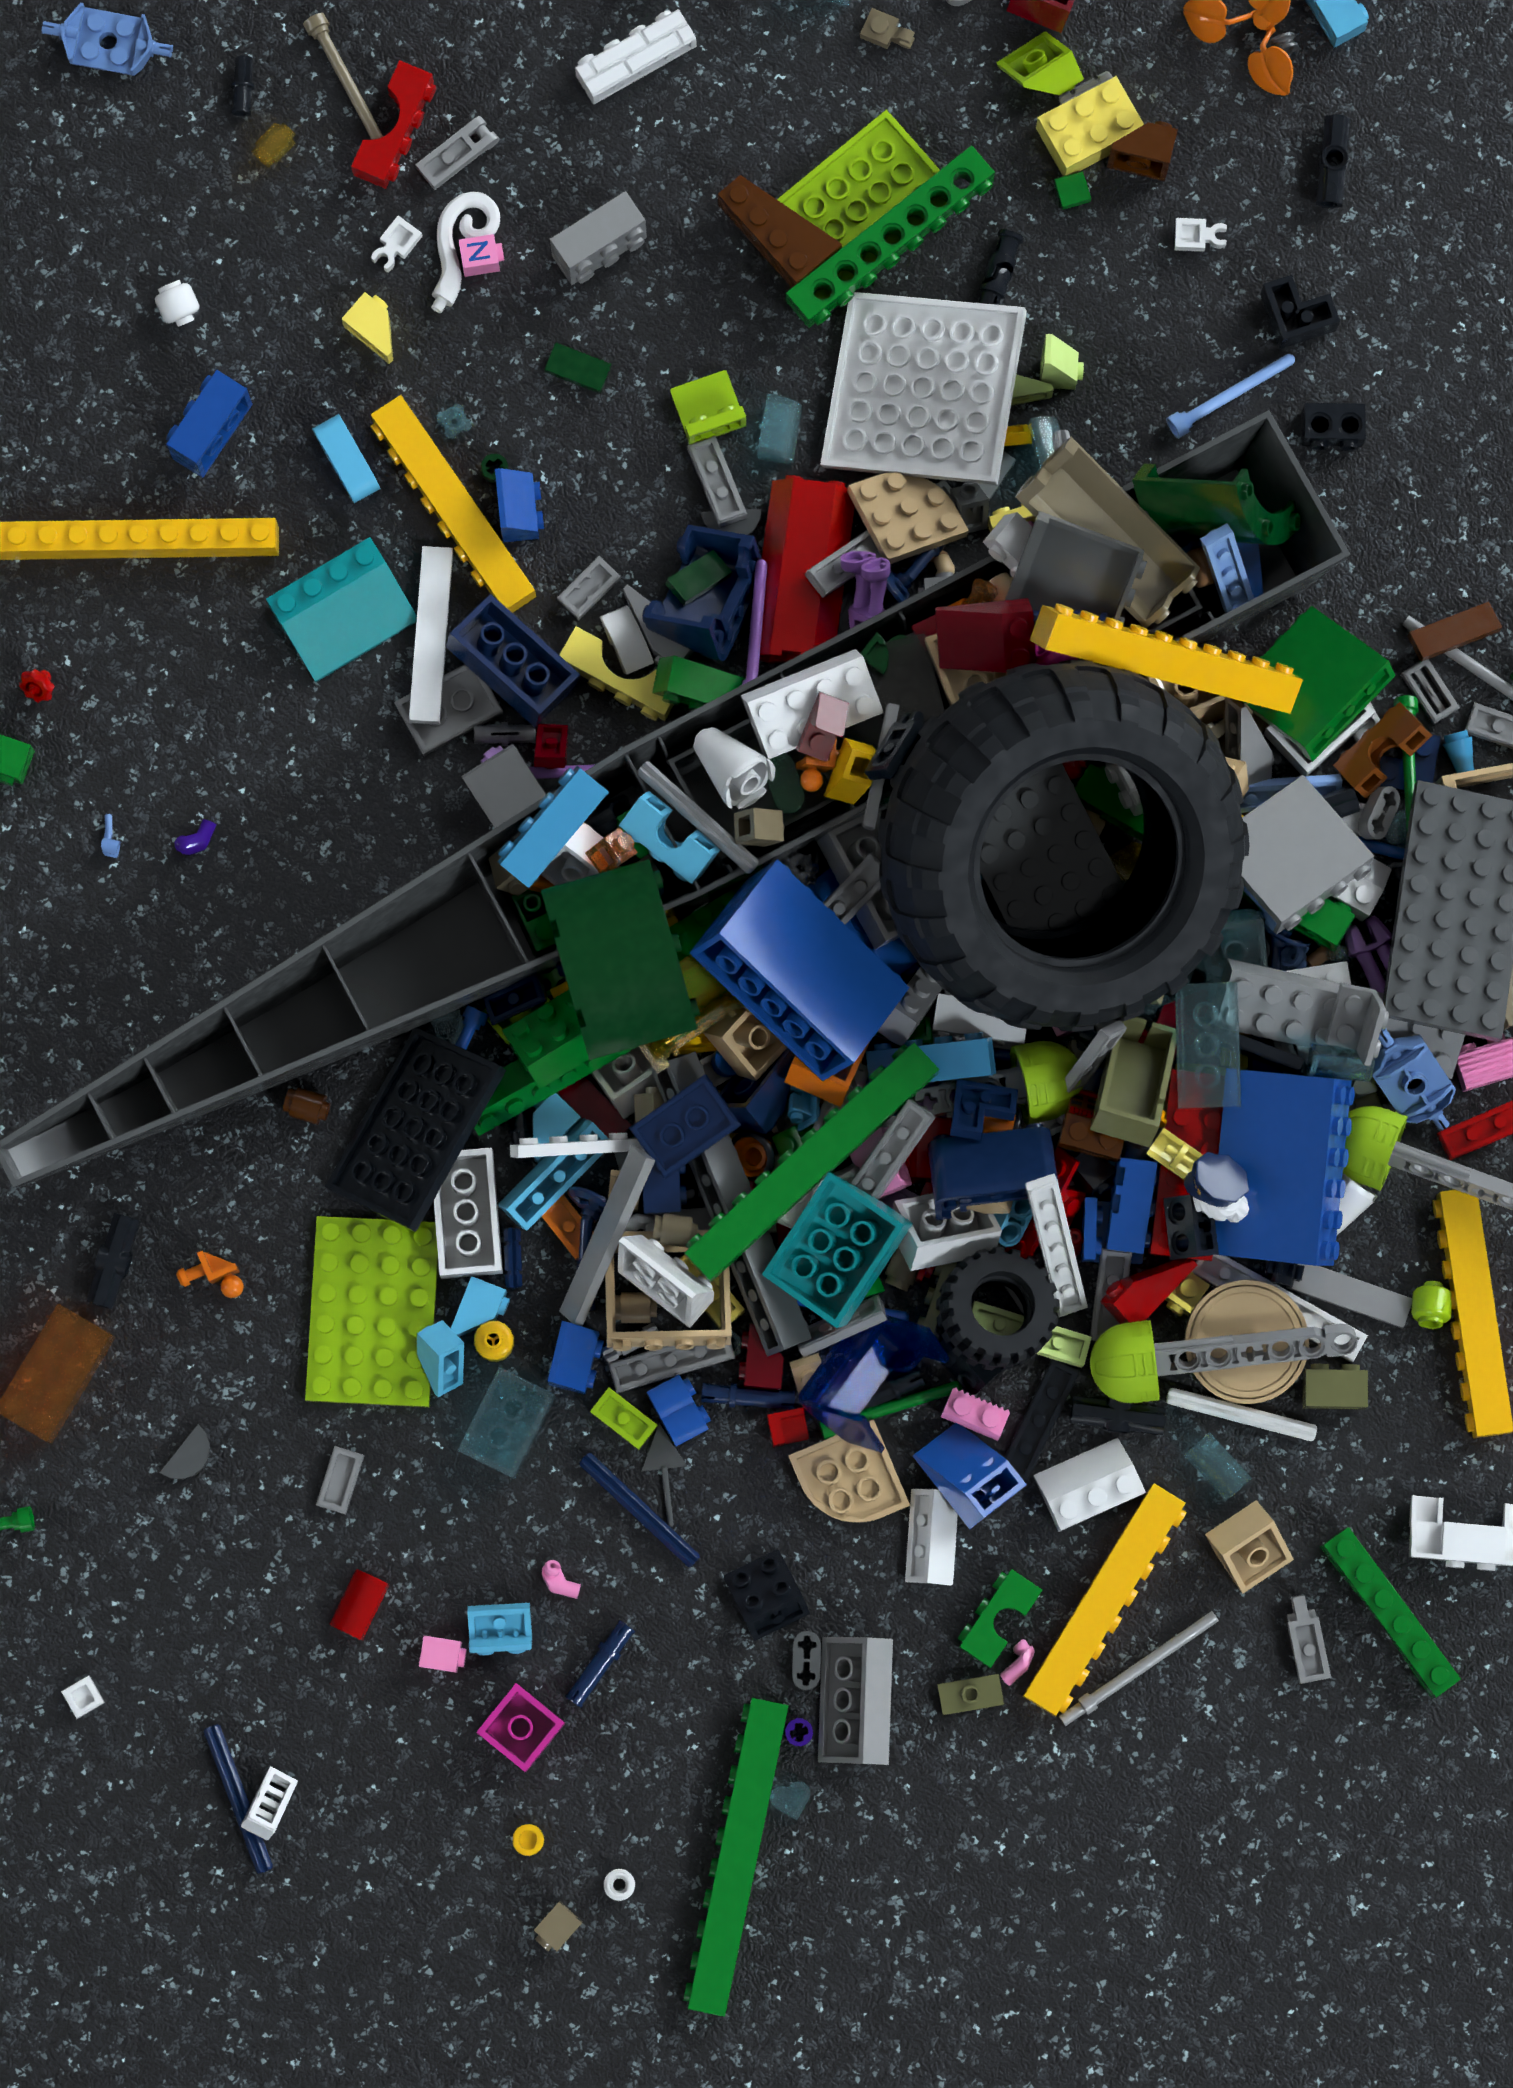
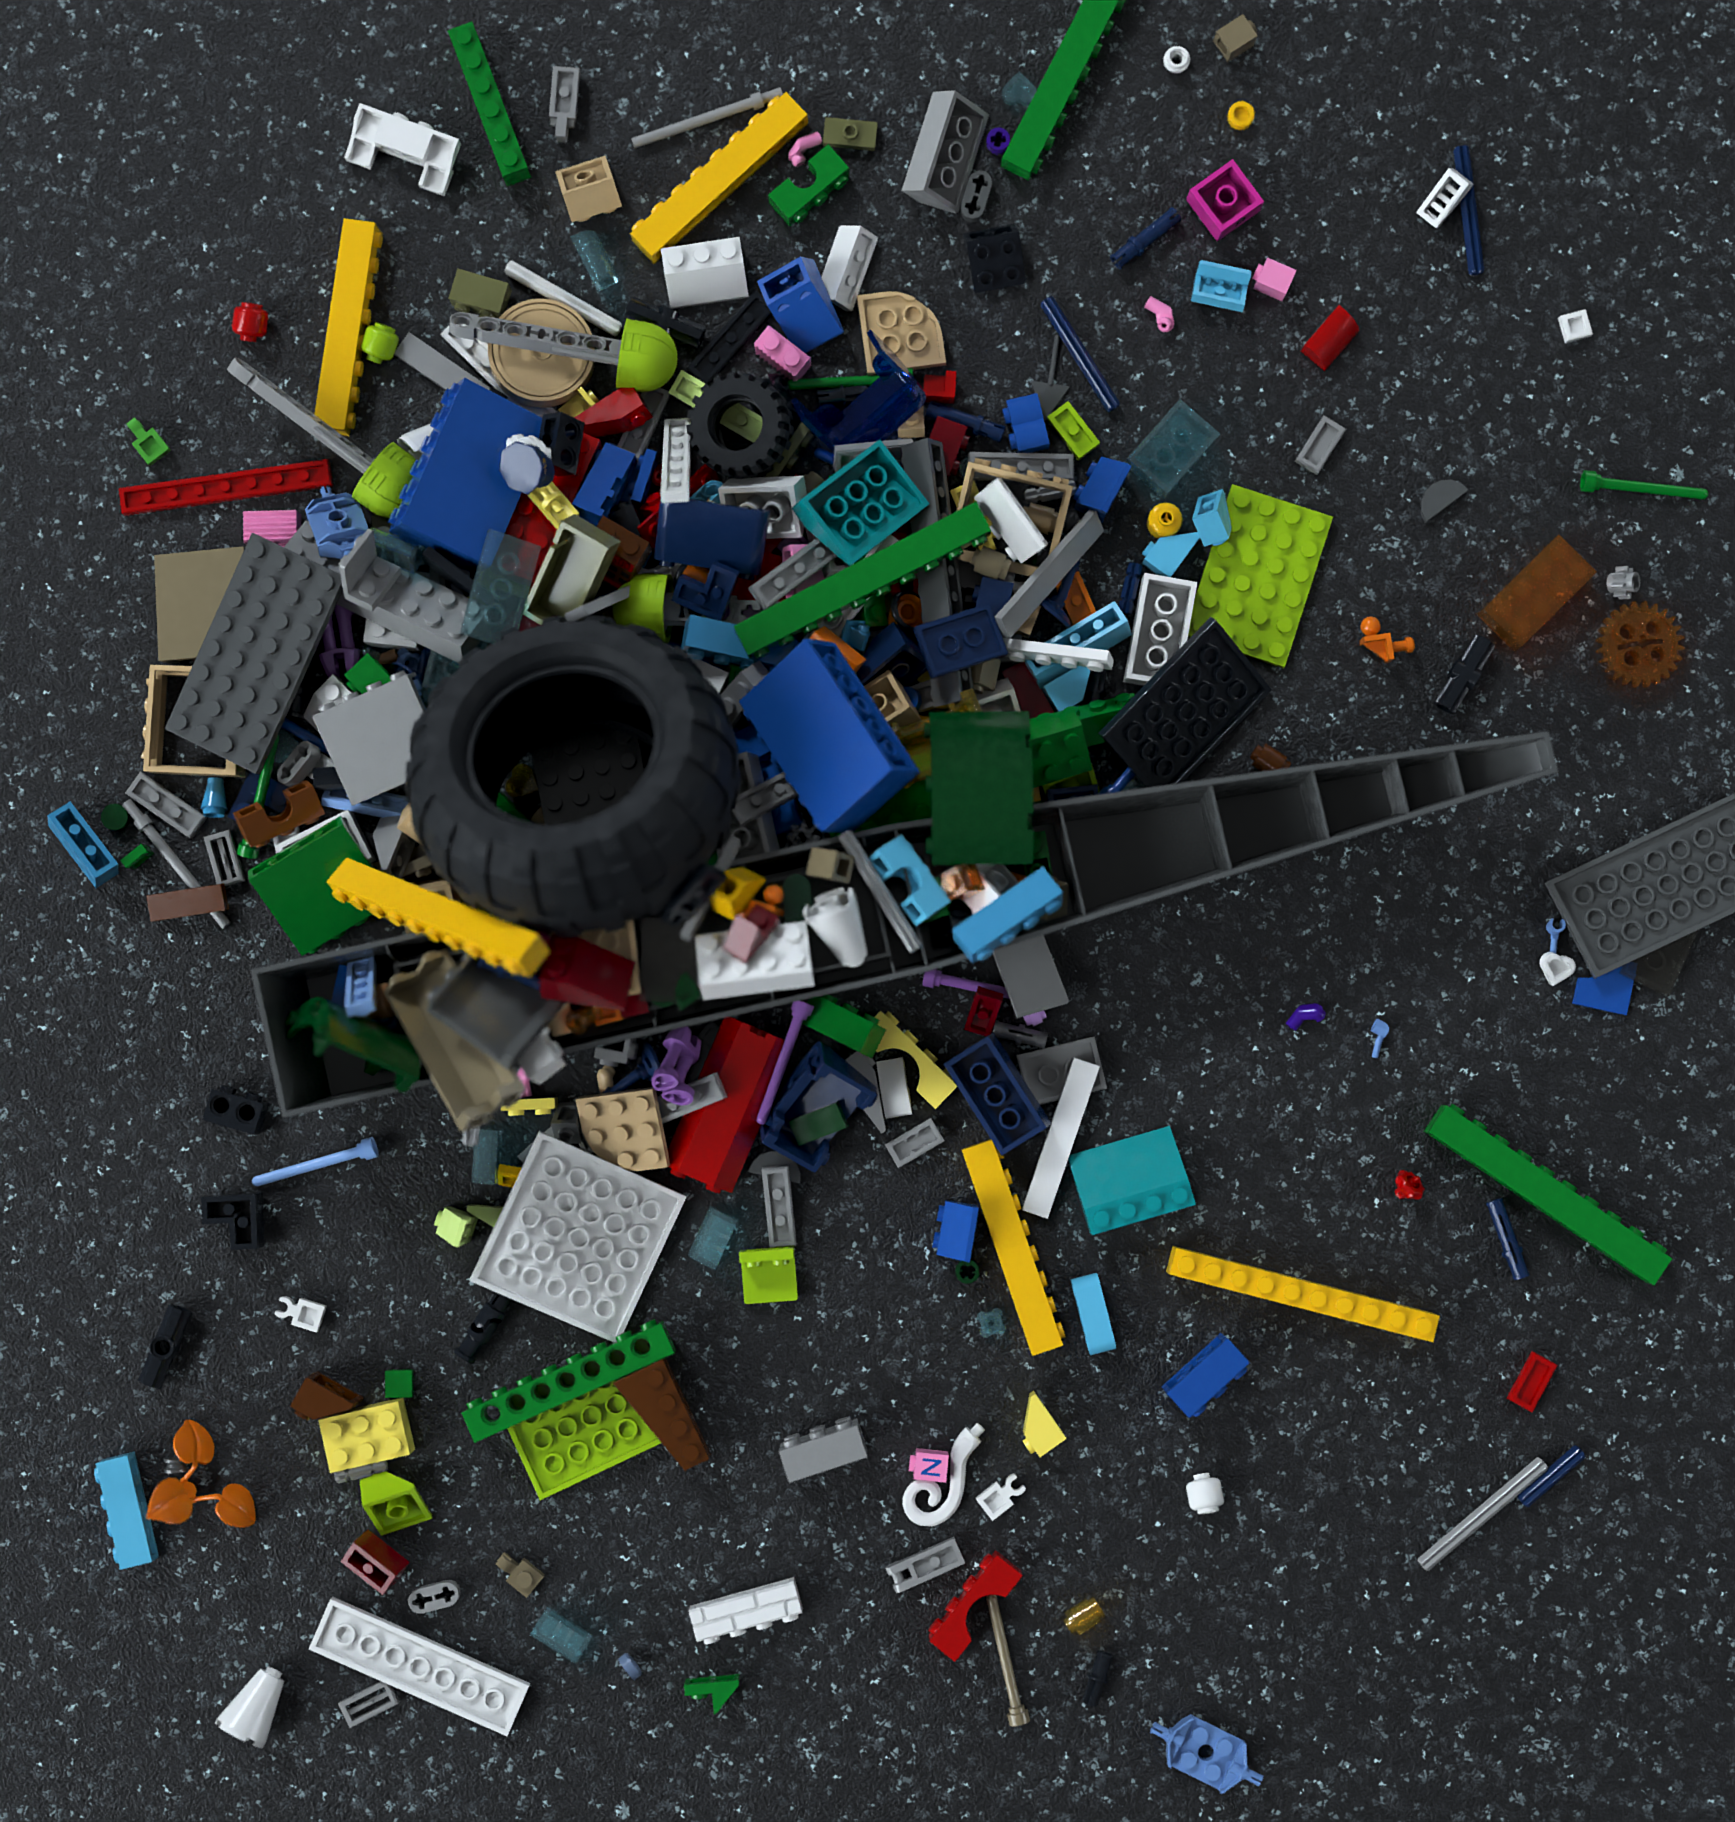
camera: 160 degrees left, 5 degrees up
(578, 368) = (871, 1341): dark green tile -> none

